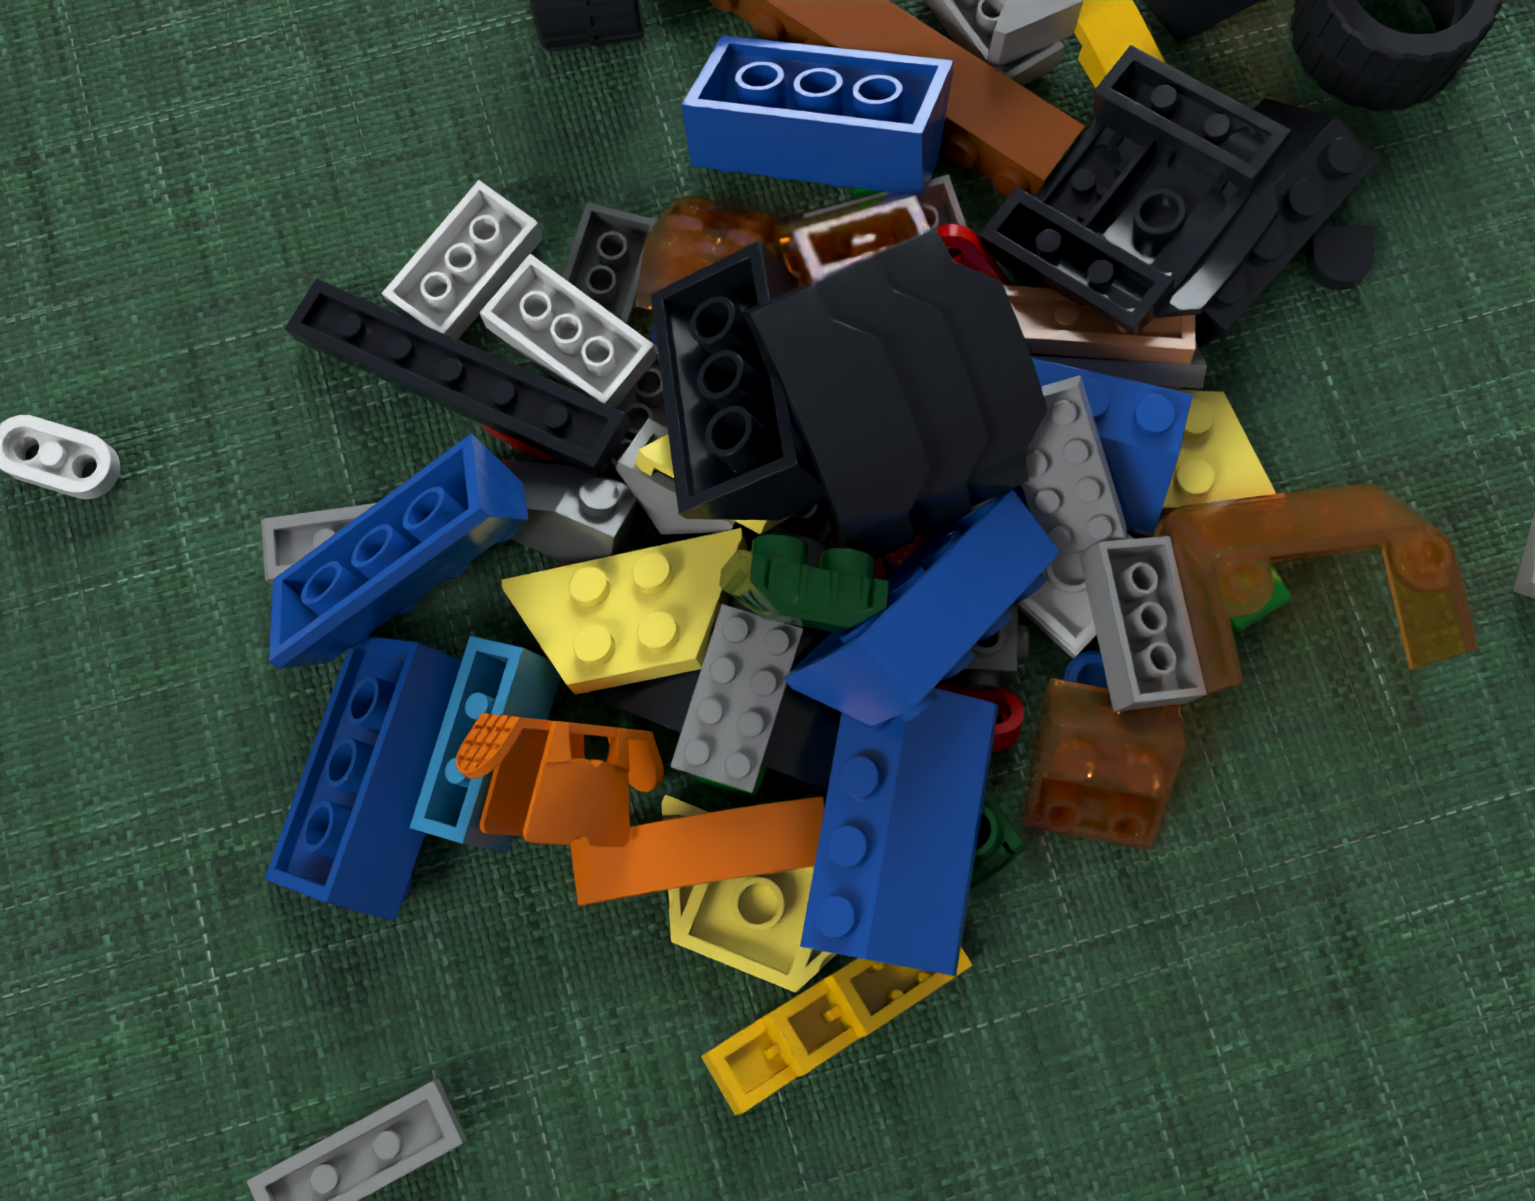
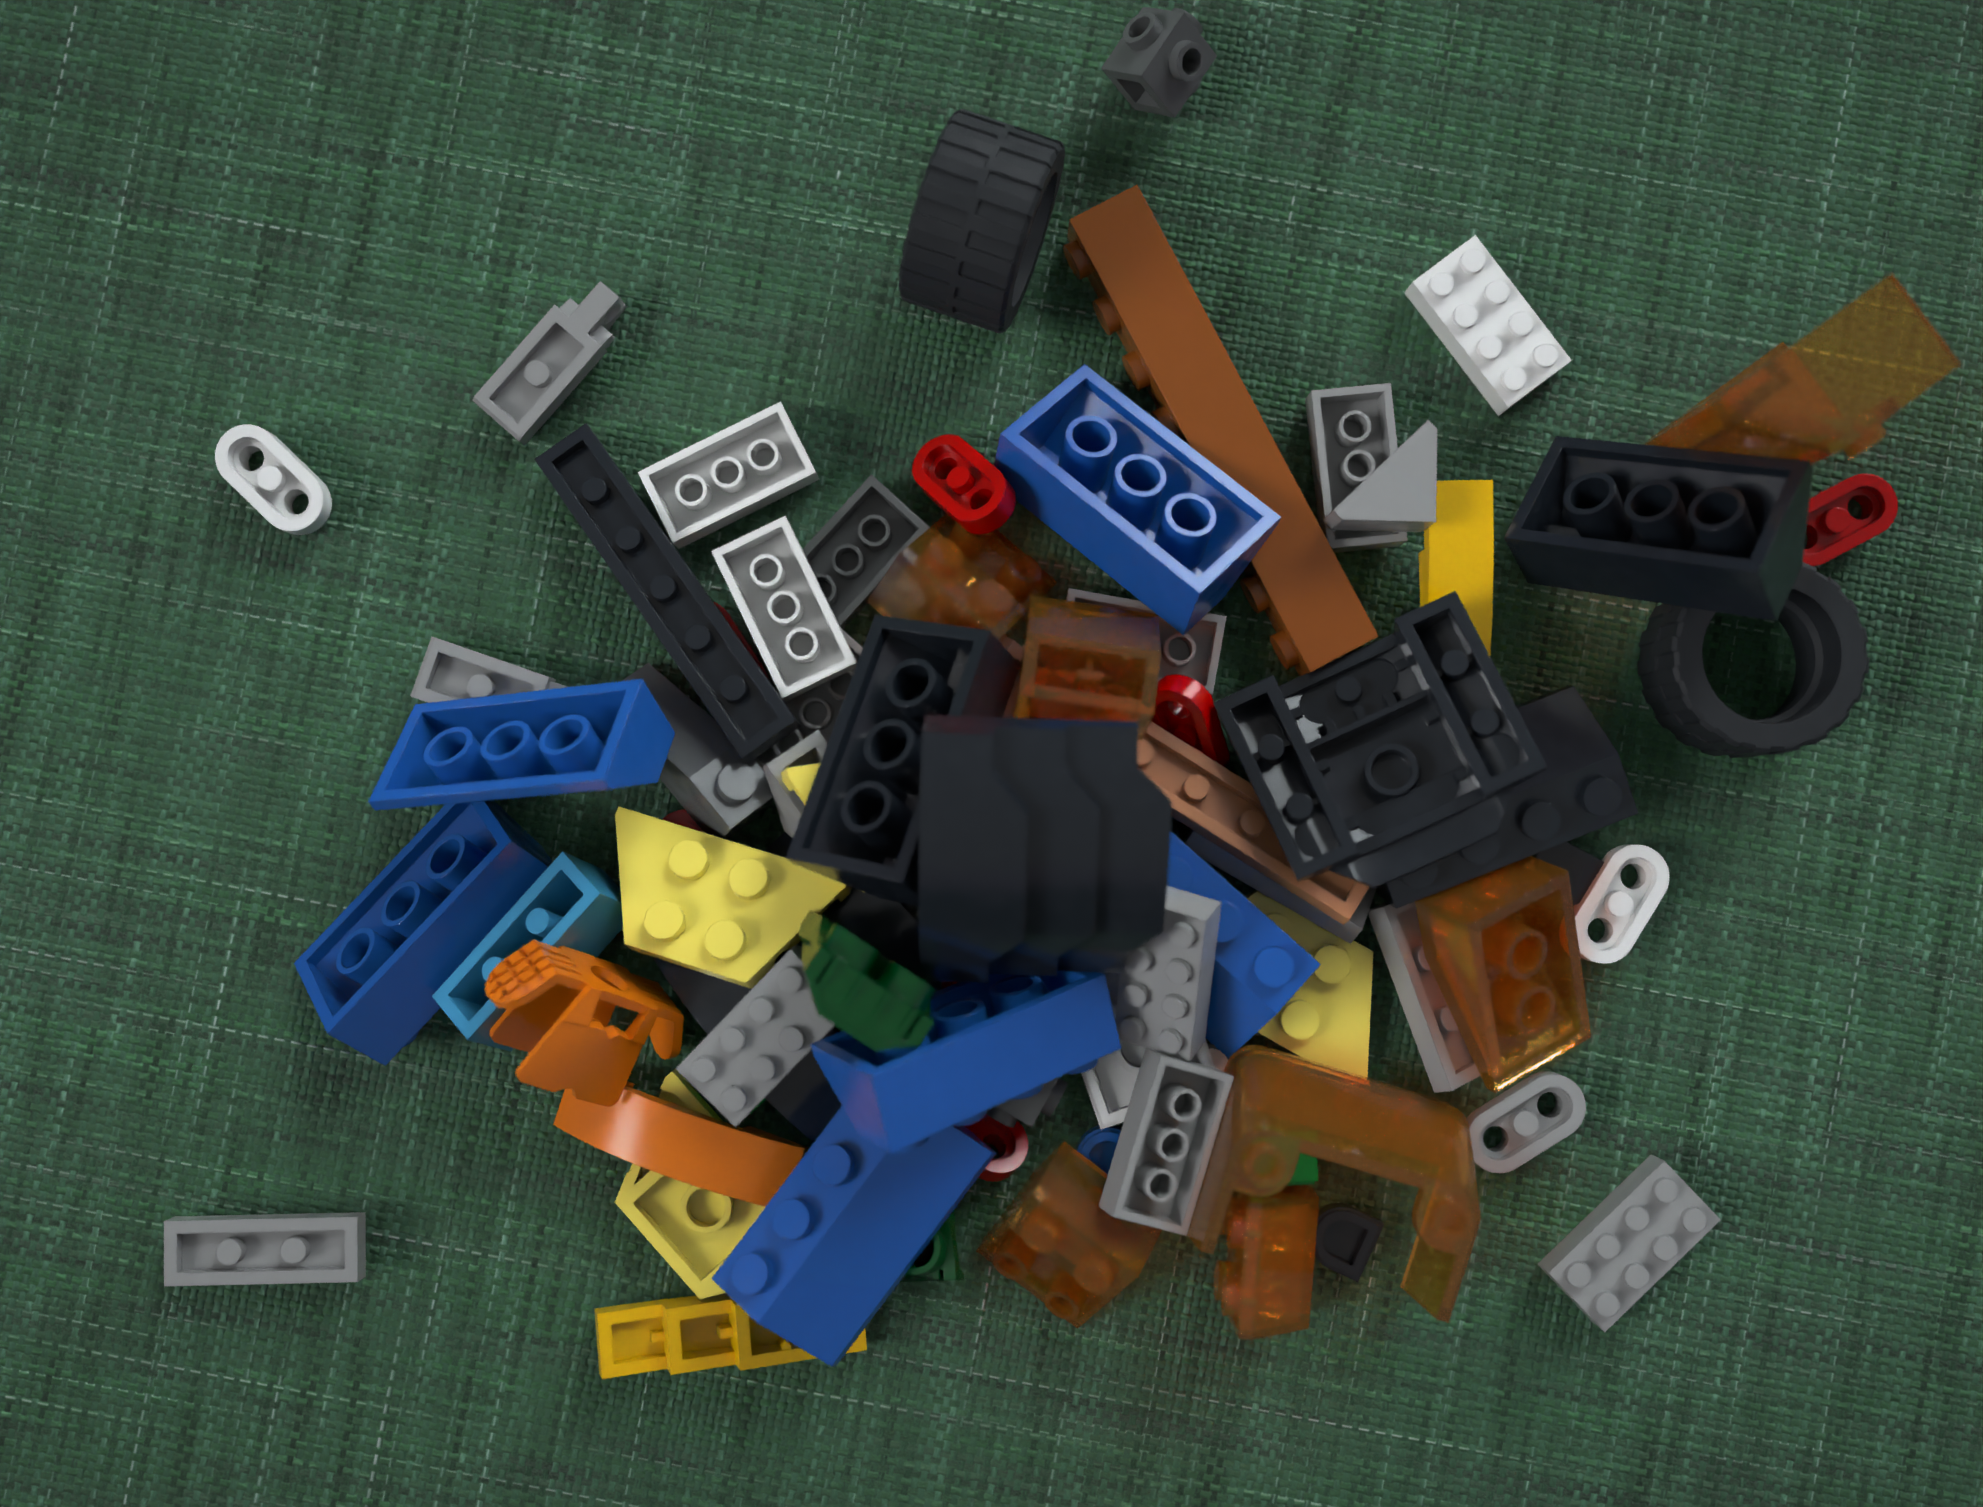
camera: 30 degrees right, 10 degrees up
(261, 247) = (550, 363): none -> light grey hinge
(670, 172) = (964, 484): none -> red plate
(1287, 689) = (1268, 1262): none -> clear orange slope
(1291, 398) = (1428, 1015): none -> light grey plate
(1337, 650) = (1346, 1238): none -> black tile
(1344, 339) = (1509, 967): none -> clear orange slope
(1404, 260) = (1618, 907): none -> white plate
(1434, 476) = (1522, 1126): none -> light grey plate

